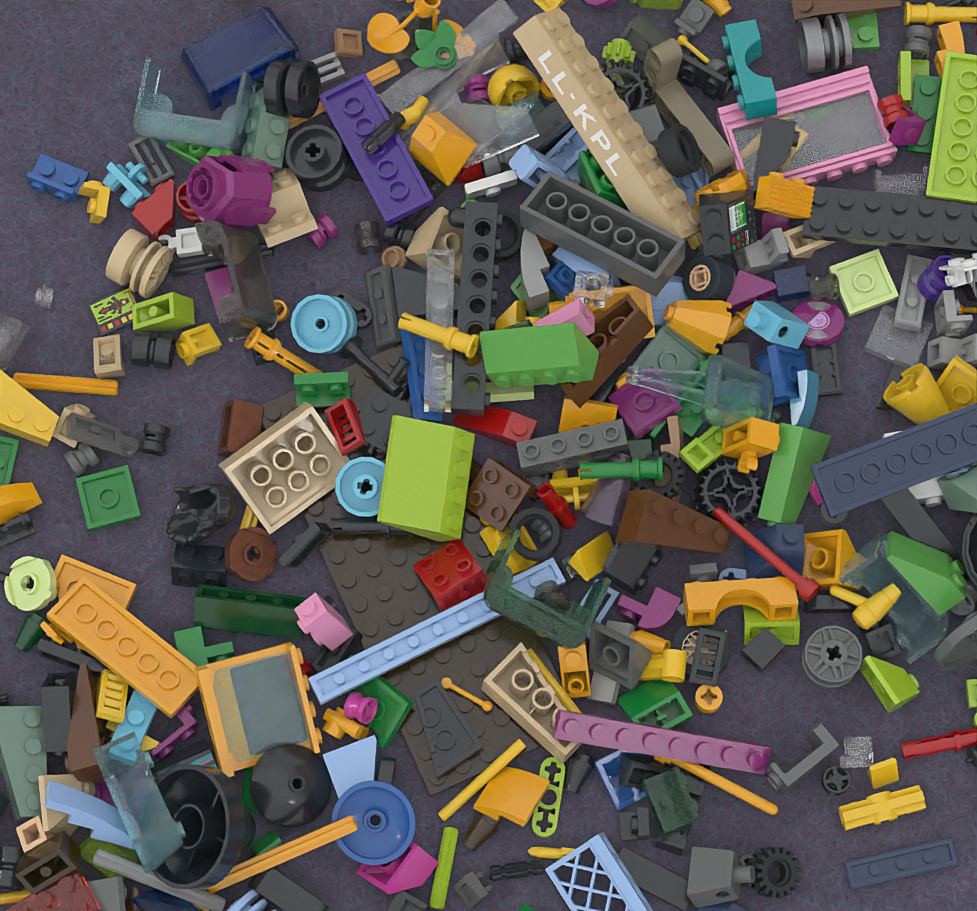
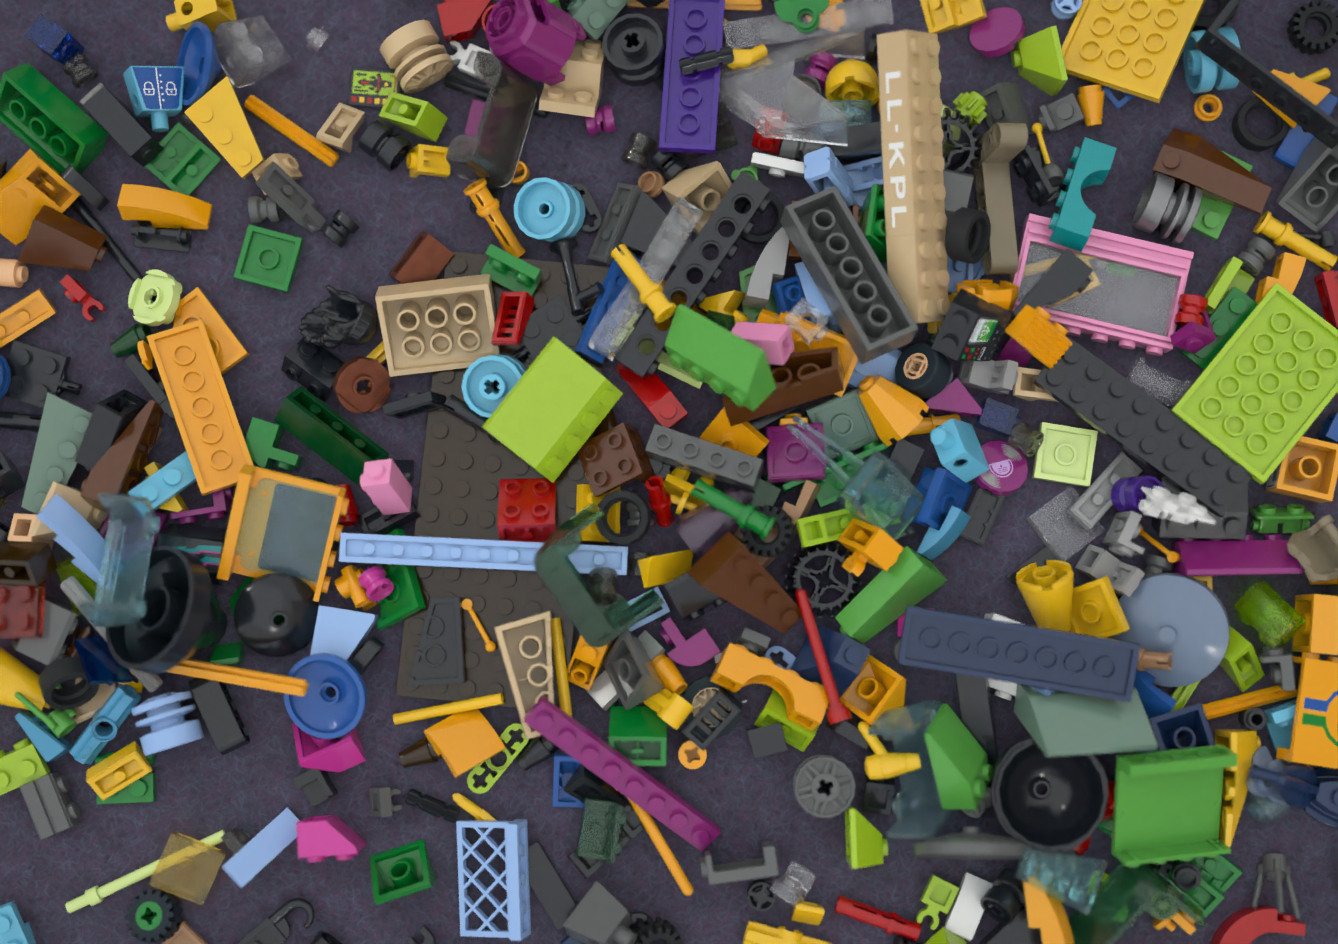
camera: 30 degrees right, 10 degrees up
(111, 692) = (170, 431): yellow slope -> none
(441, 146) = (751, 104): light orange slope -> none
(443, 868) = (370, 766): lime axle -> none
(456, 217) = (726, 179): black hinge -> none
(634, 825) = (558, 829): black bracket -> none

